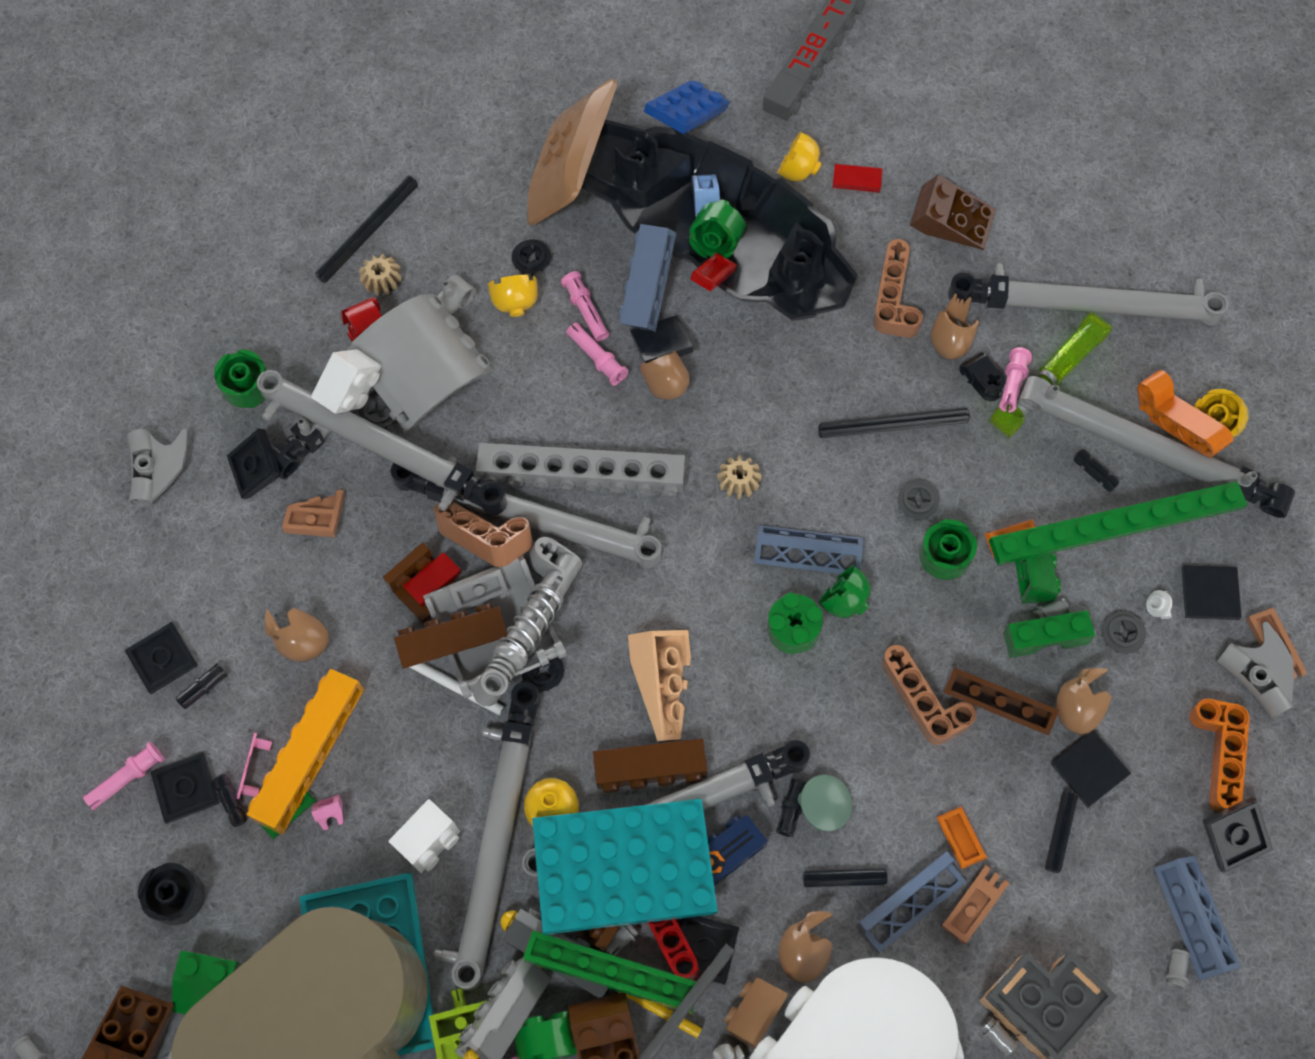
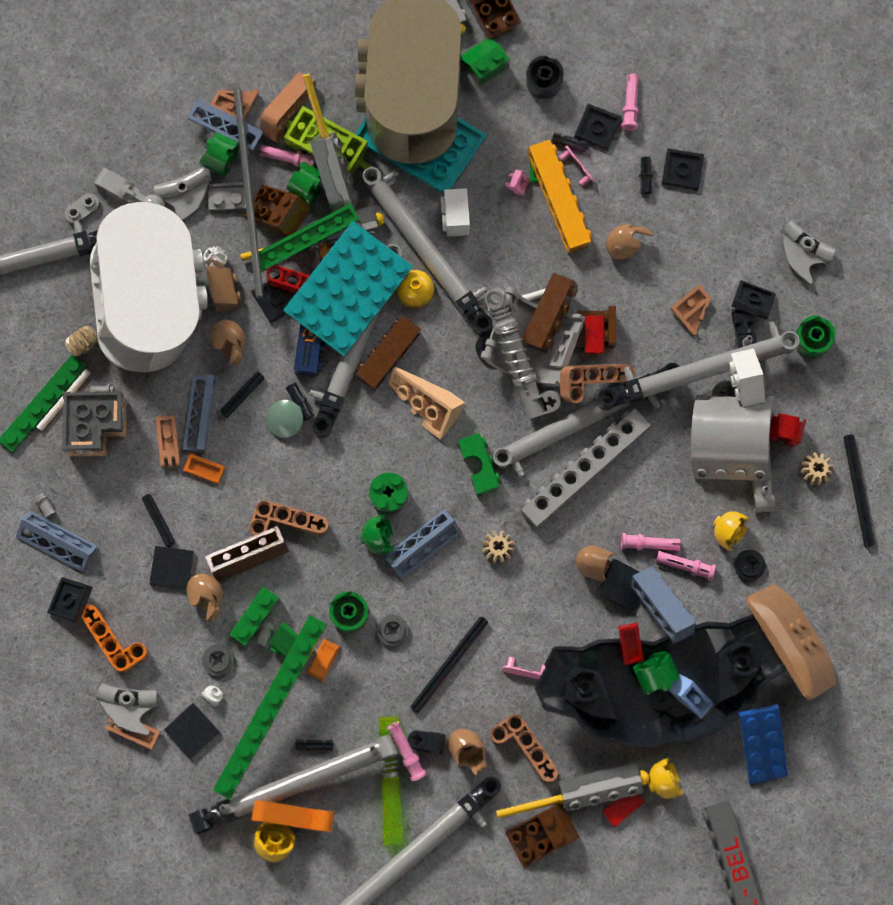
camera: 130 degrees right, 10 degrees up
(684, 547) = (474, 448): none -> green arch
(838, 369) = (518, 671): none -> bright pink piece
(877, 208) = (590, 790): none -> piece

